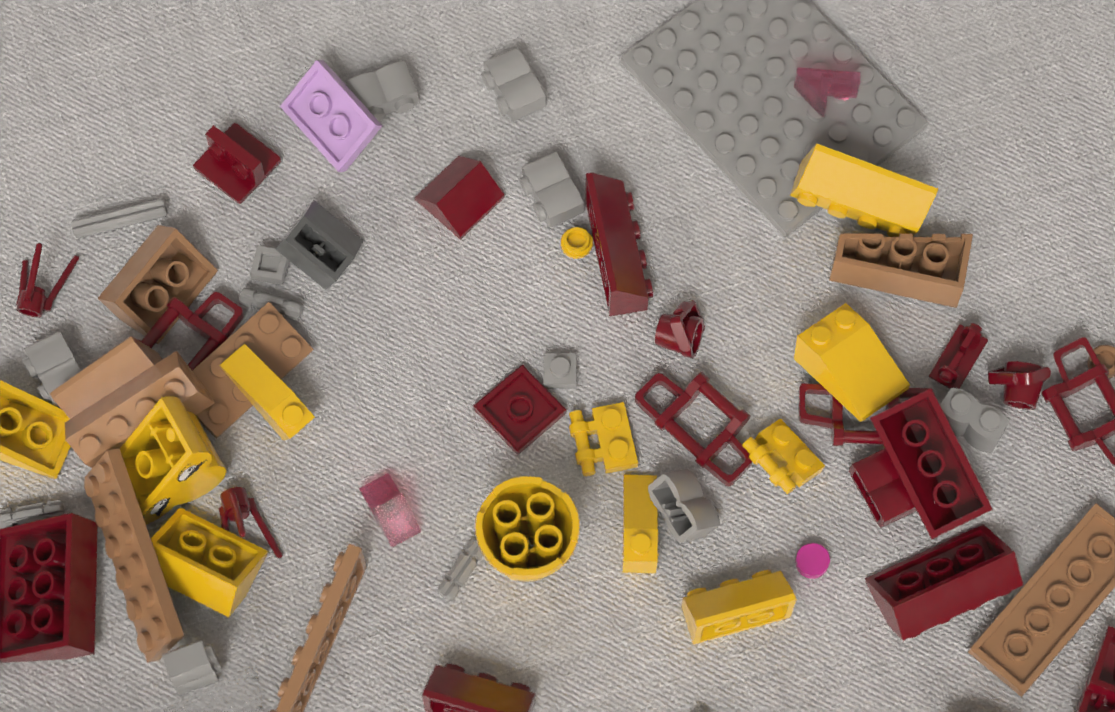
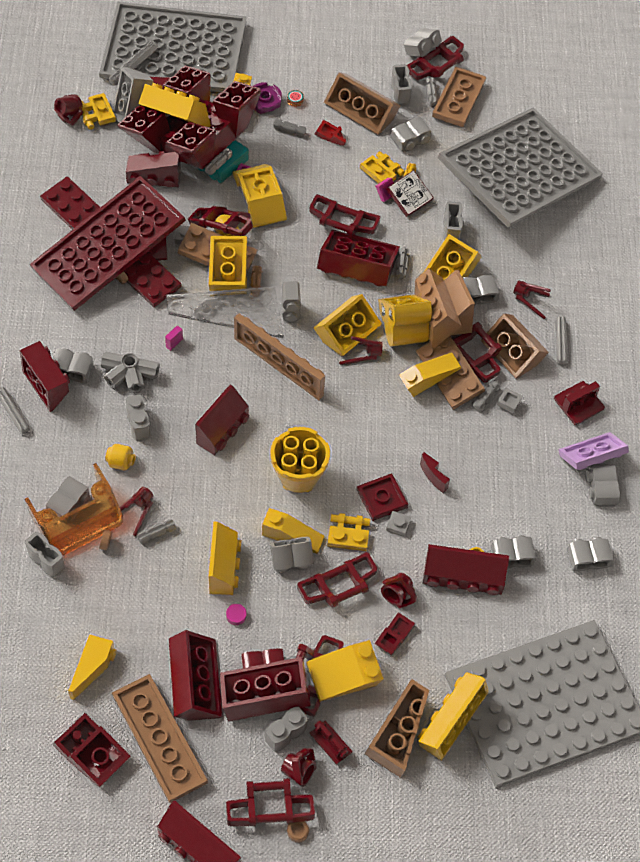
camera: 105 degrees right, 10 degrees down
(133, 556) = (369, 289): medium nougat plate -> none
(320, 245) = (512, 423): dark grey slope -> none
(390, 510) = (343, 417): clear pink slope -> none
(446, 345) = (430, 469): none -> dark red slope
(461, 195) = (524, 506): dark red slope -> none
(751, 322) = (395, 634): none -> dark red slope
(783, 456) = (303, 623): yellow plate -> none
(817, 84) = (534, 718): clear pink slope -> none

